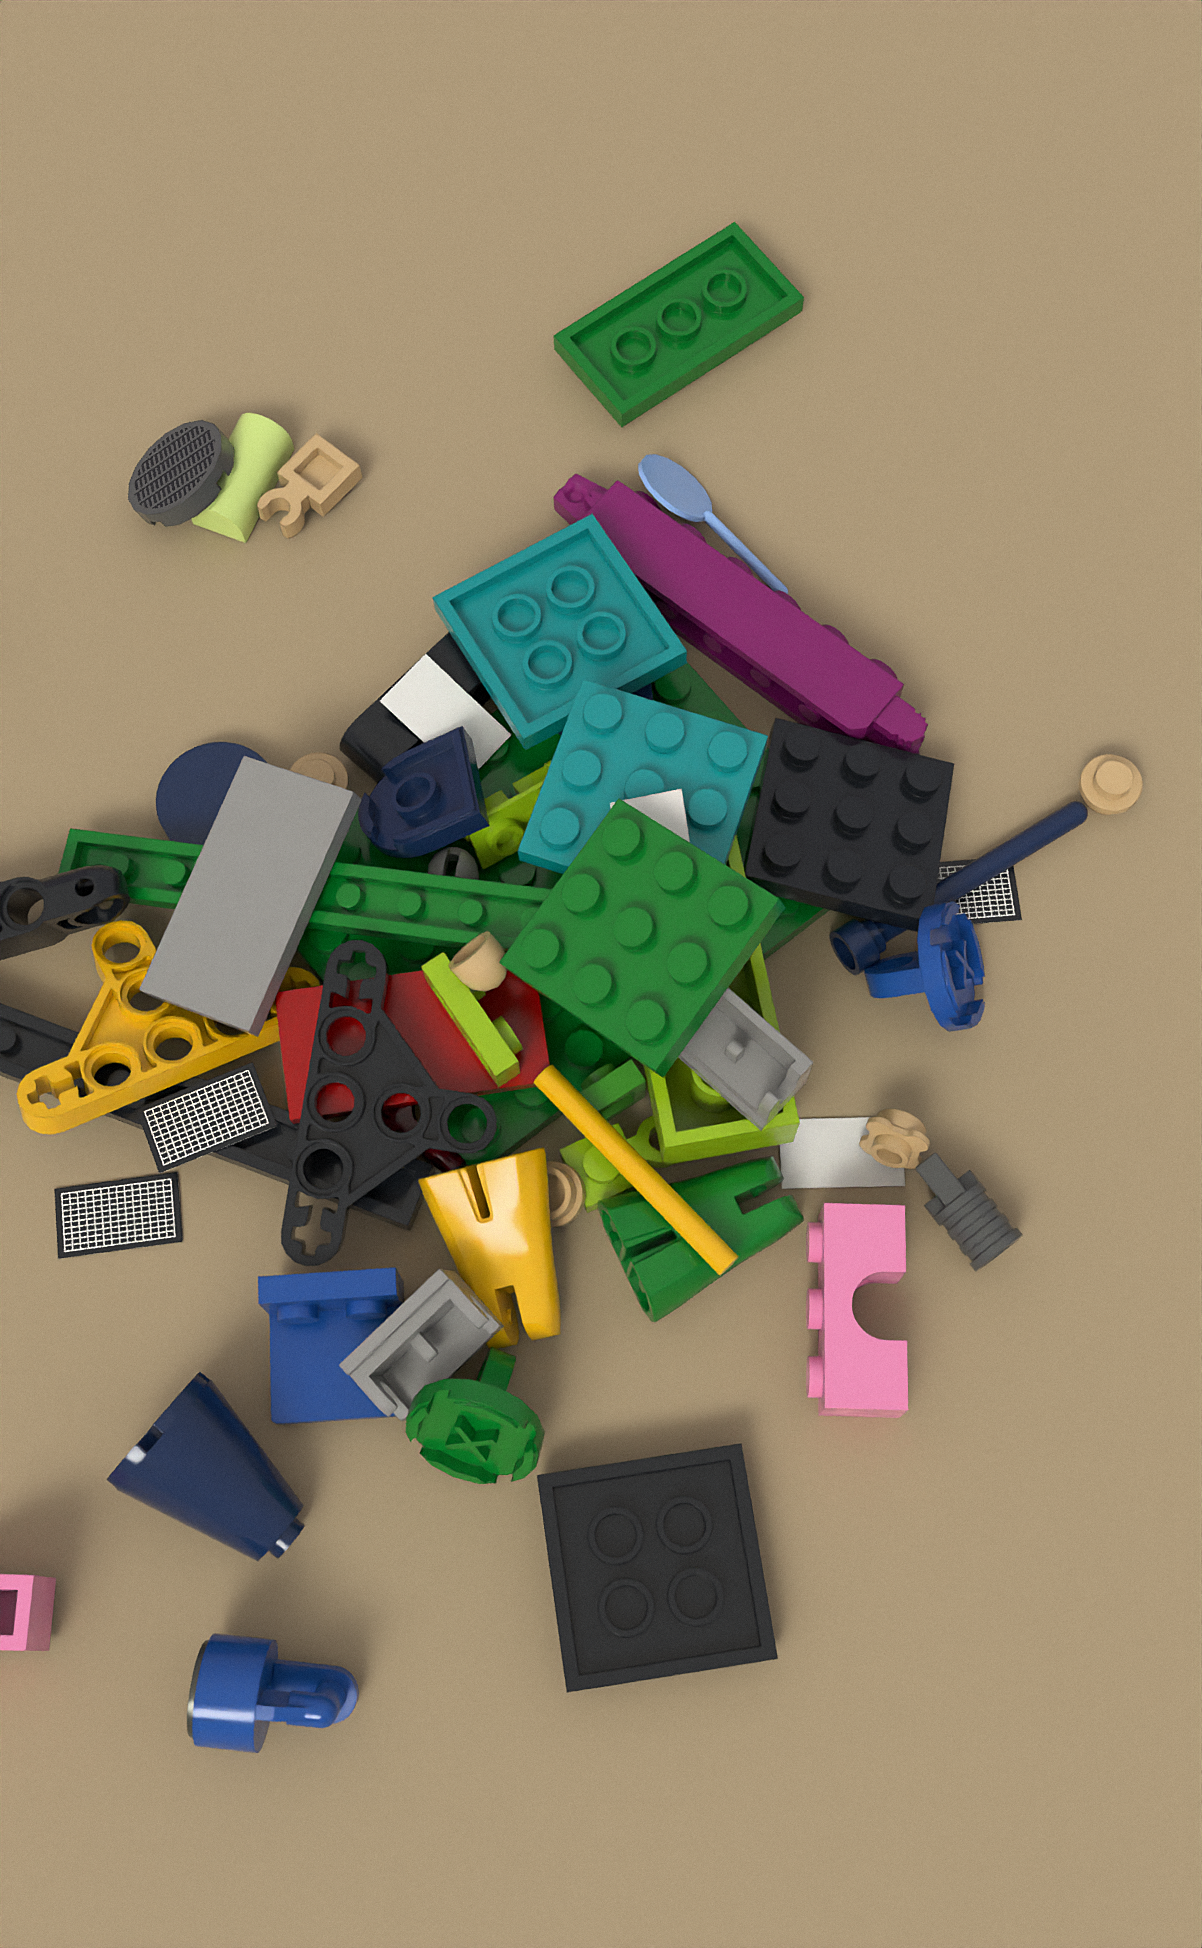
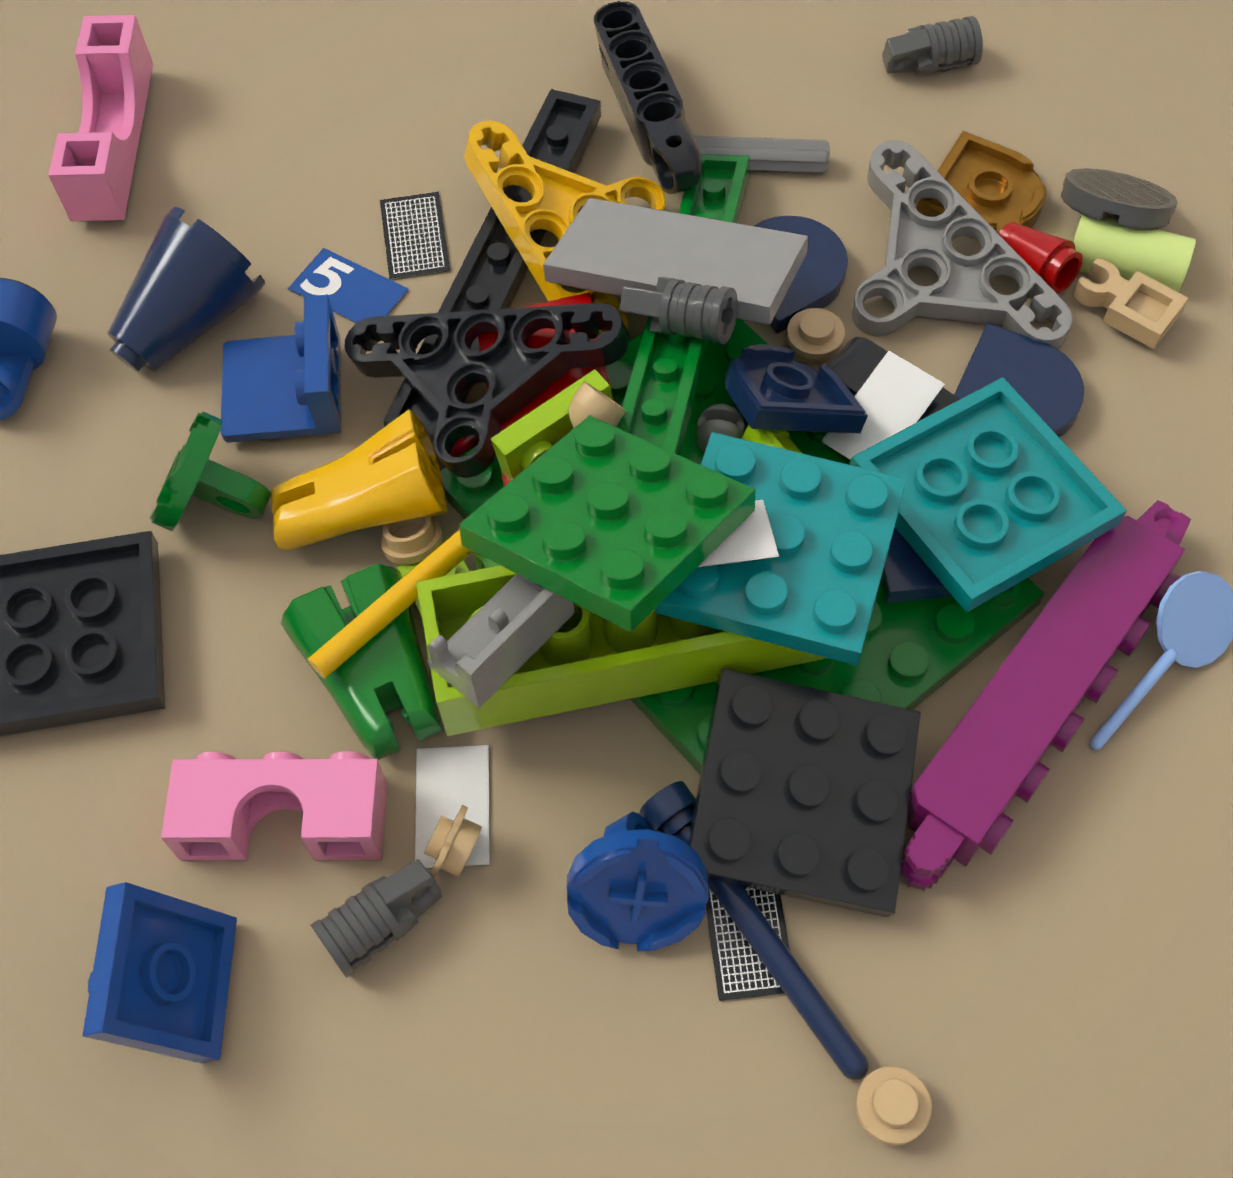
camera: 90 degrees right, 10 degrees down
(55, 815) = (771, 153): none -> light grey axle
(135, 603) = (992, 180): none -> pearl gold tile
(191, 1290) = (350, 287): none -> blue sticker
(206, 1117) = (485, 268): black sticker -> none
(213, 661) = (963, 280): none -> light grey beam
(241, 560) = (1046, 254): none -> red cone
(343, 880) = (685, 308): none -> dark grey hinge
(391, 603) = (1033, 369): none -> dark blue tile
(421, 1342) = (269, 426): light grey hinge -> none
(1042, 1401) = (160, 974): none -> blue tile

